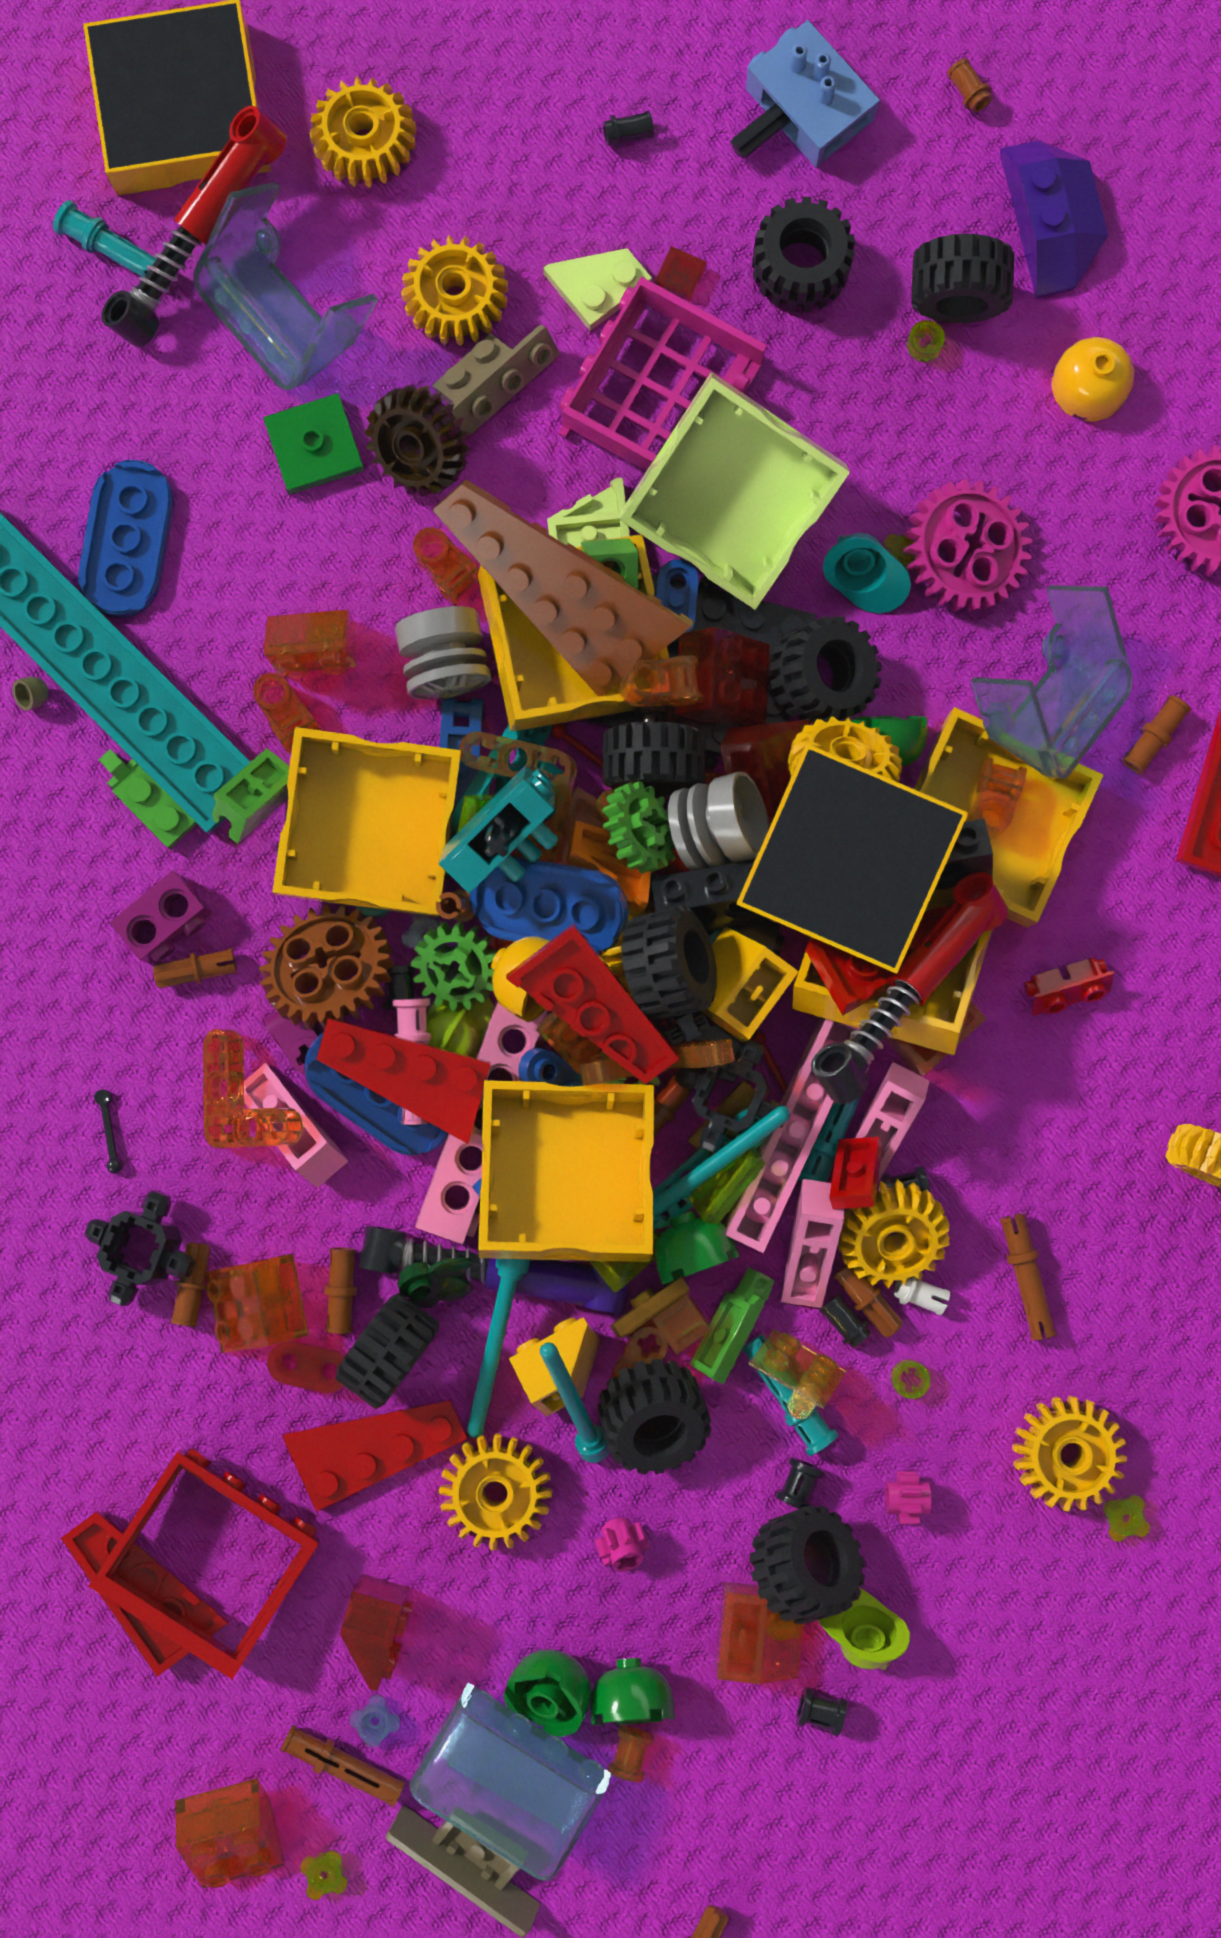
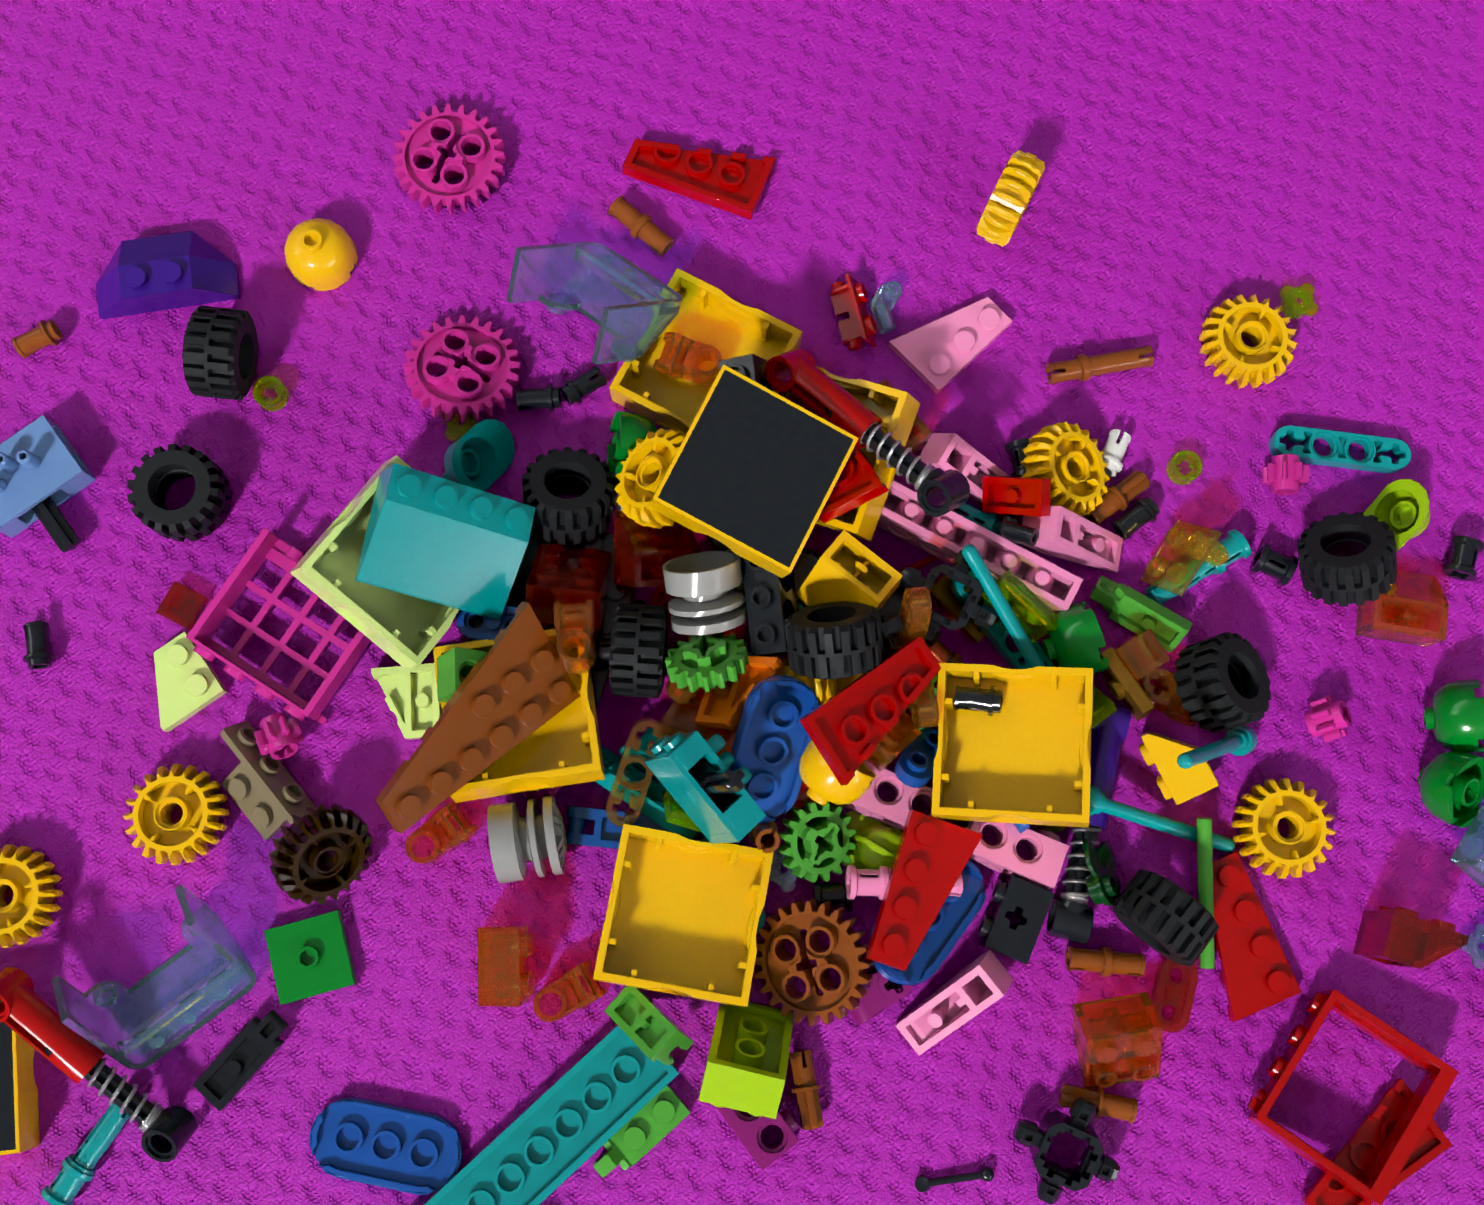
camera: 90 degrees left, 5 degrees down
(206, 384) = (242, 1060): none -> black hinge
(221, 899) = (748, 1059): none -> lime slope
(230, 1109) = (941, 1058): clear orange beam -> none
(357, 1188) = (1031, 905): none -> black brick
(424, 1401) = (1205, 881): none -> bright green bar
(541, 385) = (278, 736): none -> dark pink gear
(559, 731) = (605, 736): red hinge -> none
(616, 1133) = (978, 699): none -> black pin
(755, 533) = (444, 541): none -> teal slope
(814, 1169) = (1011, 529): none -> black arm
(939, 1565) = (1339, 446): none -> teal beam
(940, 634) = (539, 398): none -> black pin
(956, 680) = (581, 386): none -> black pin
(1043, 1103) = (951, 343): none -> bright pink wing
(1084, 1020) = (883, 303): none -> clear light blue arm

